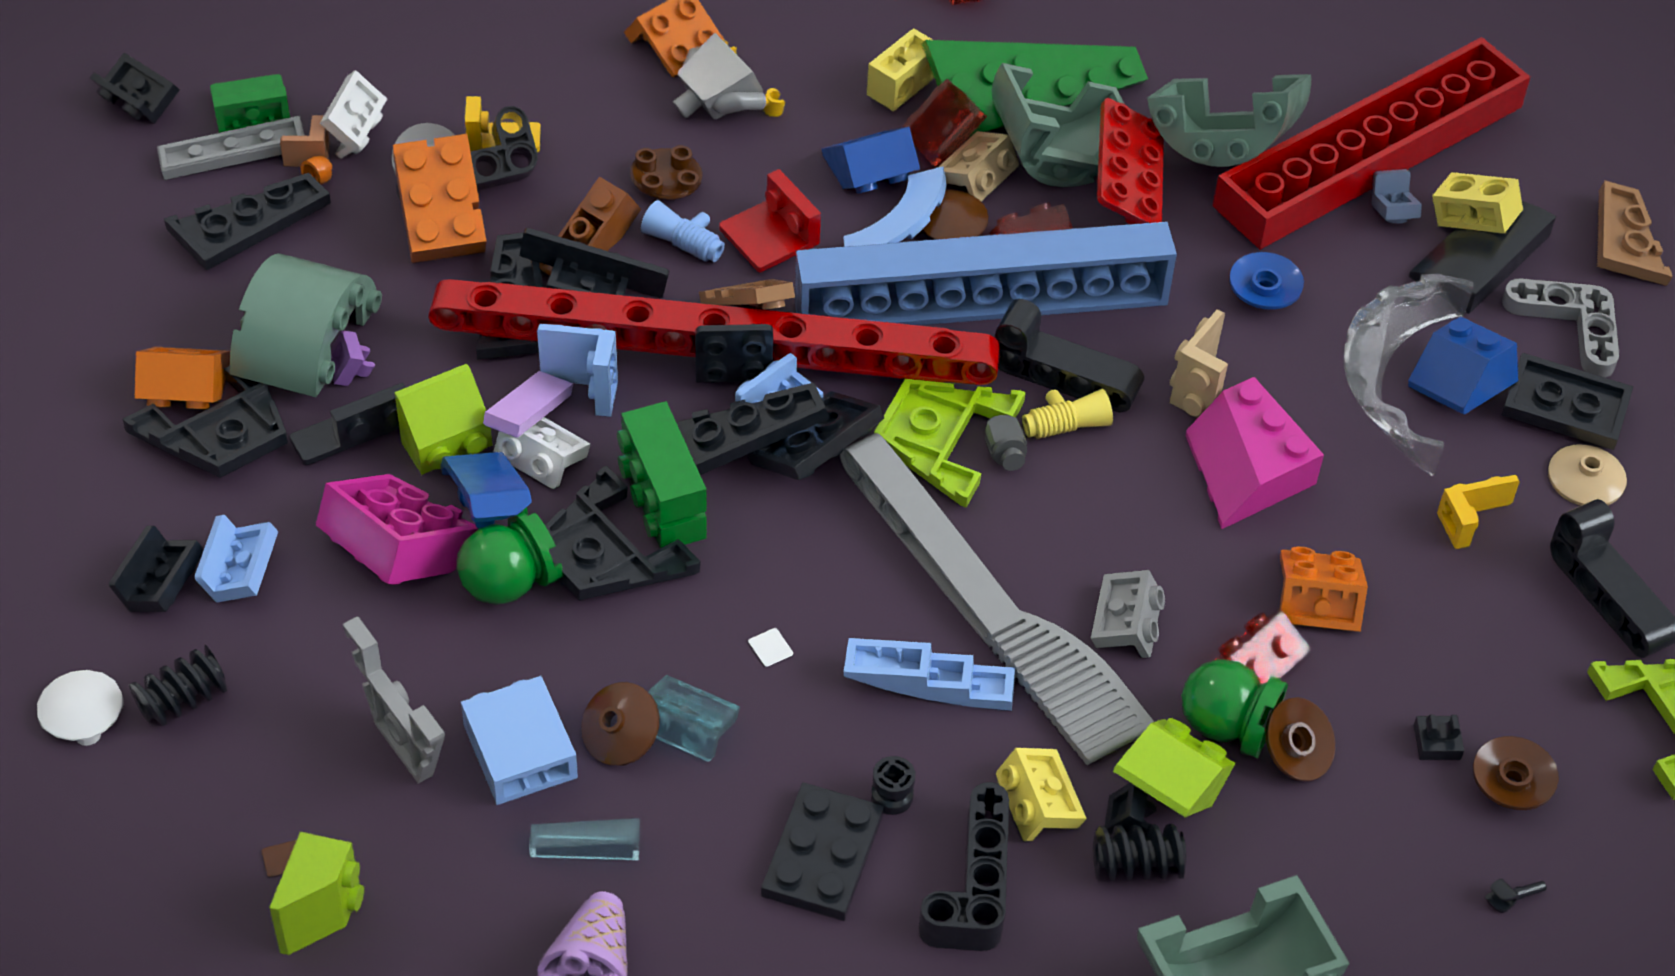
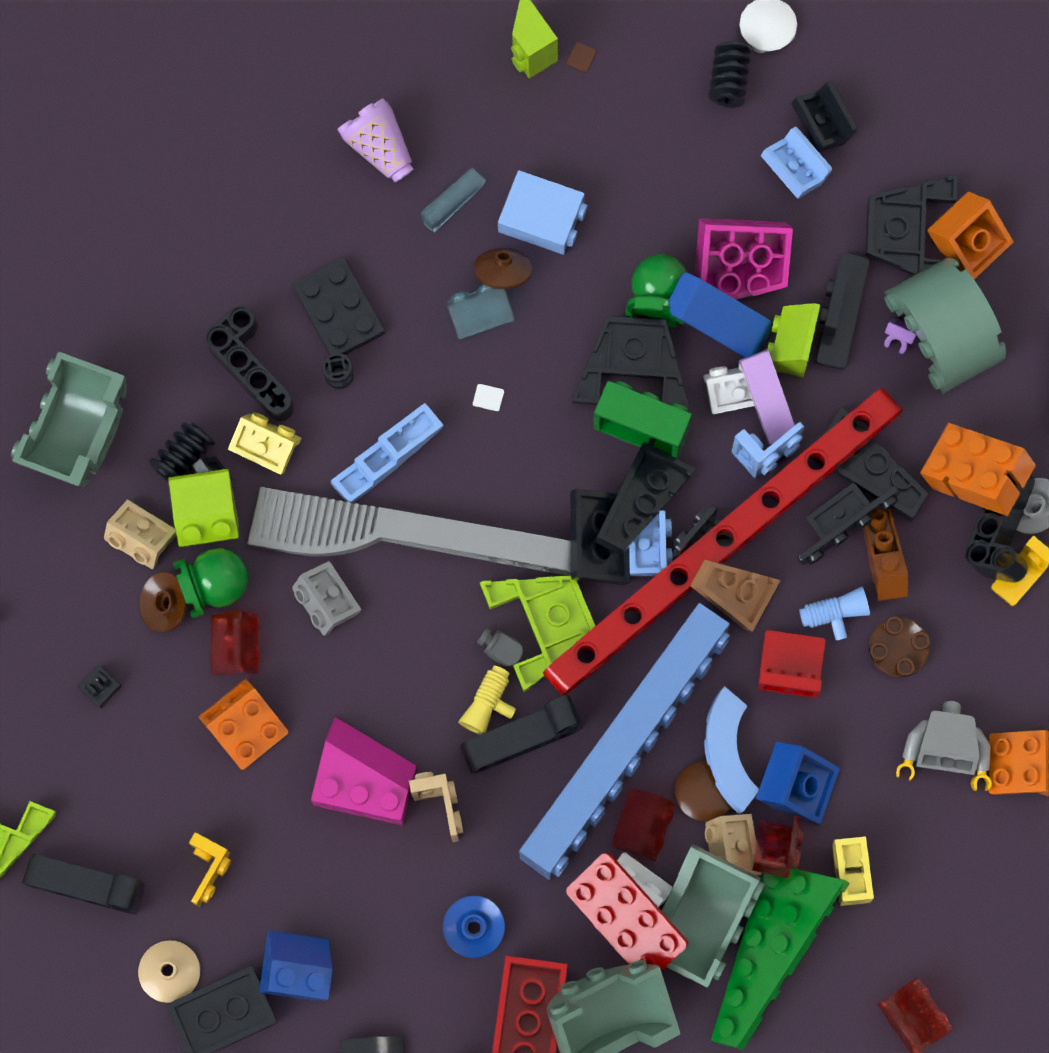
camera: 140 degrees right, 25 degrees up
(410, 733) = (593, 151): light grey wing -> none
(1081, 196) = (651, 884): none -> white bracket
(1260, 824) = (138, 534): none -> tan bracket
(1377, 334) = (358, 916): clear windscreen -> none
(1522, 761) = (29, 683): reddish brown dish -> none

